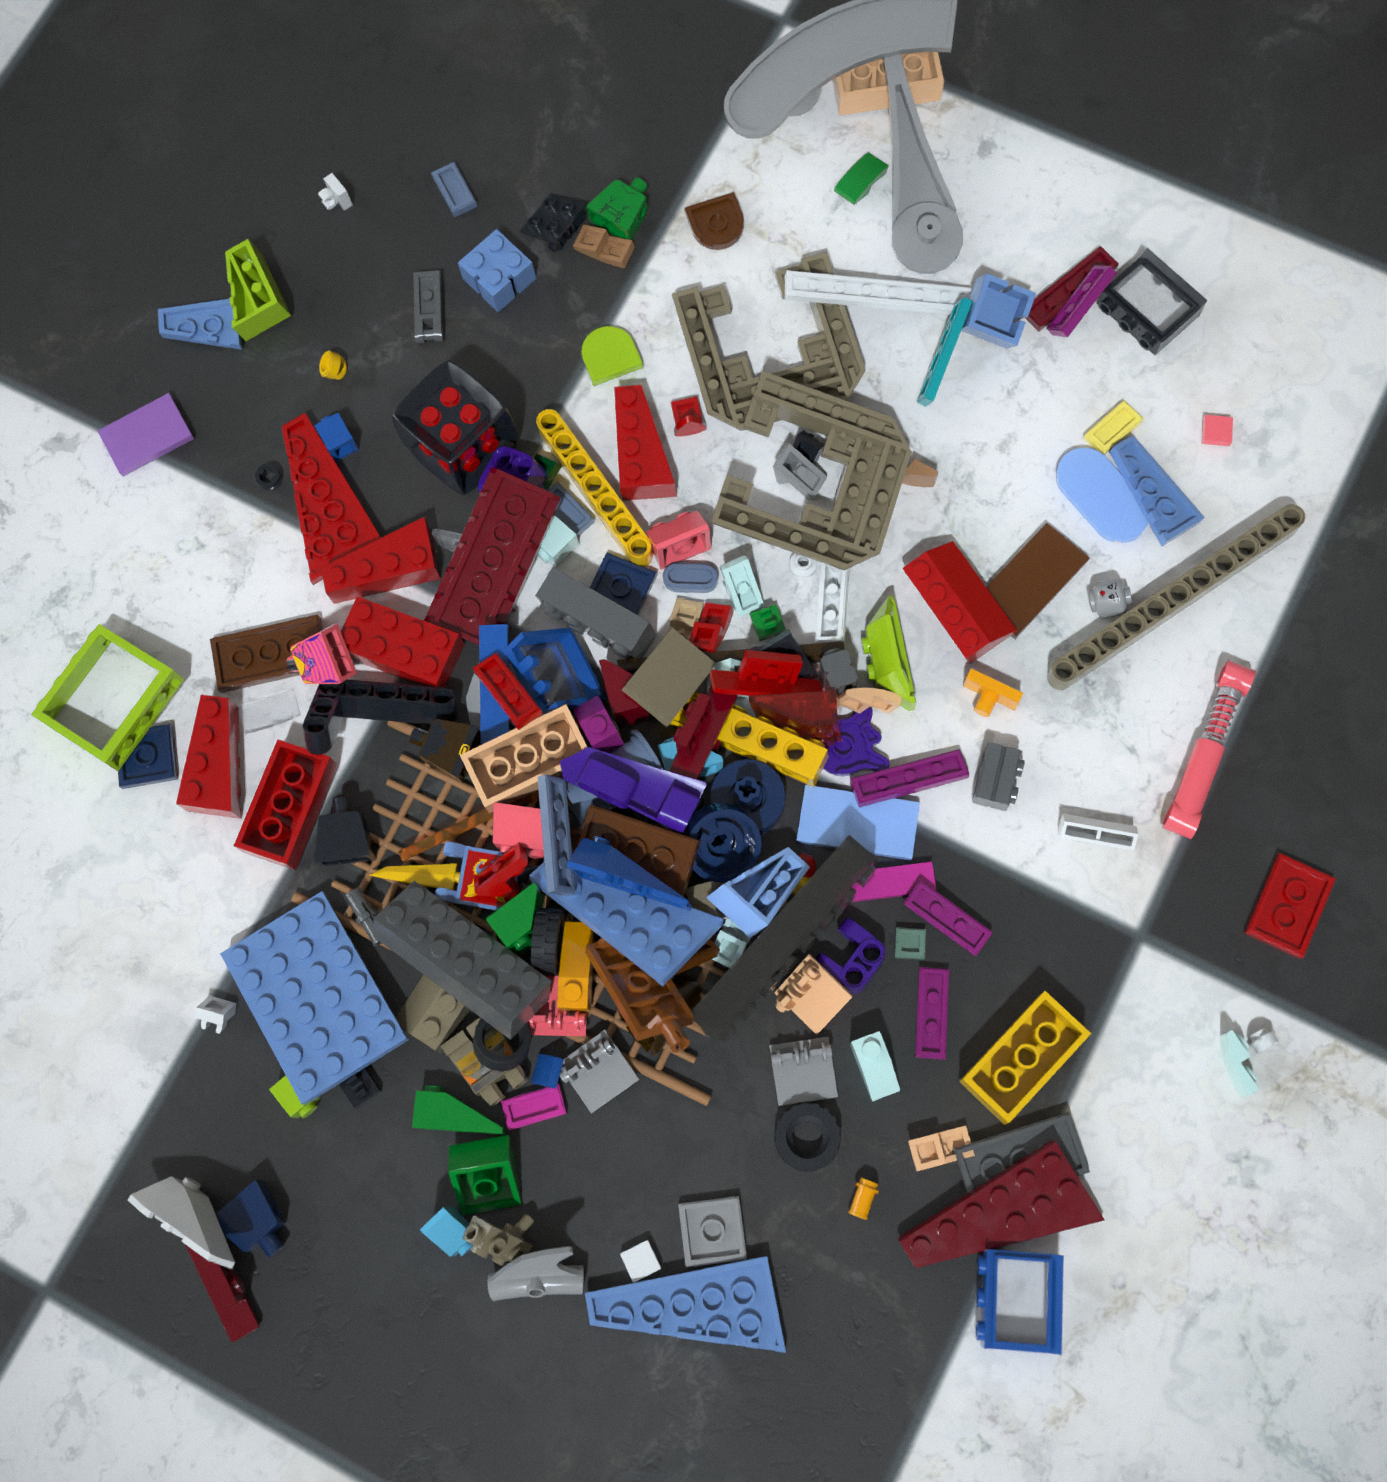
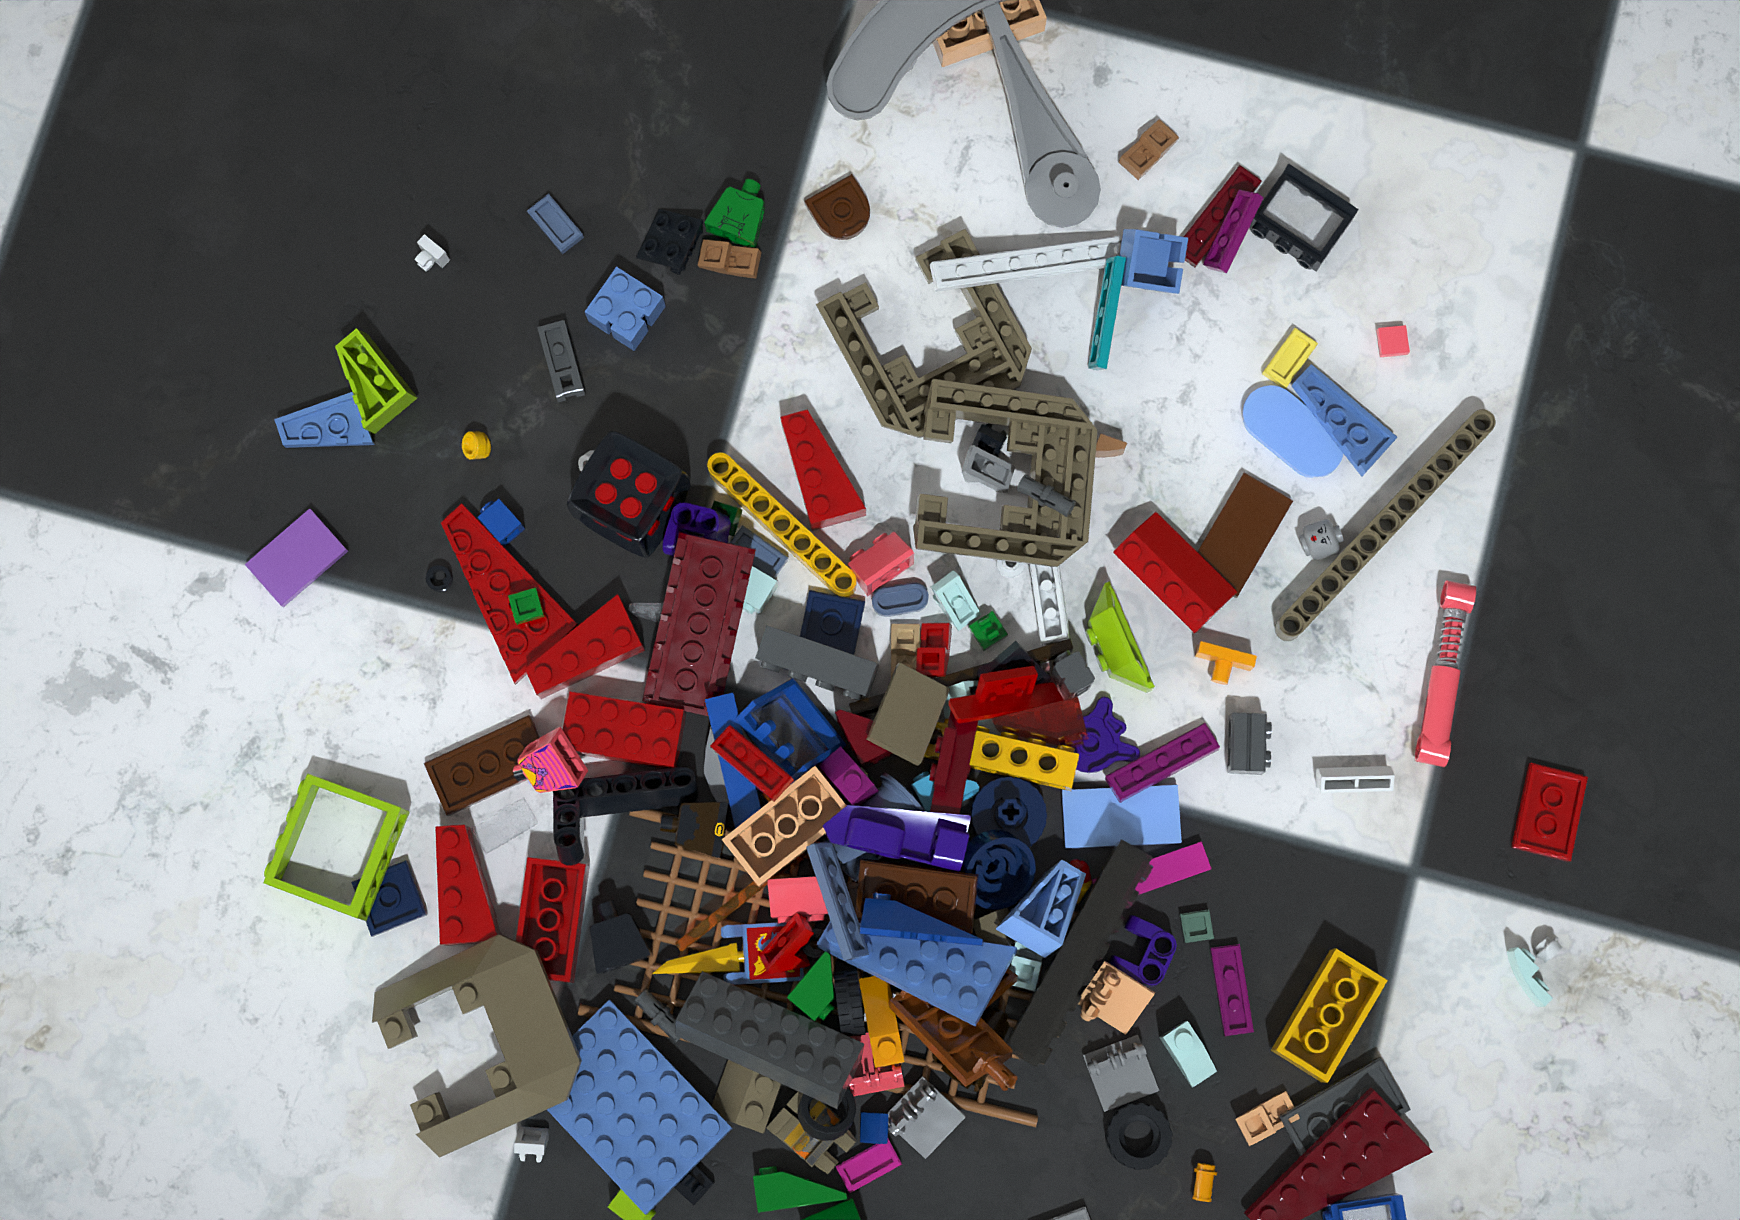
camera: 20 degrees left, 5 degrees up
(234, 903) = (526, 1021): none -> dark tan slope
(338, 512) = (526, 606): none -> green plate
(609, 354) = (763, 377): lime tile -> none
(687, 417) = (858, 429): red tile -> none
(848, 500) = (1046, 495): none -> dark grey pin
(860, 178) = (980, 134): green slope -> none
(862, 698) = (1104, 693): light nougat slope -> none
(947, 918) = (1227, 894): magenta tile -> none
(1017, 219) = (1149, 149): none -> medium nougat slope

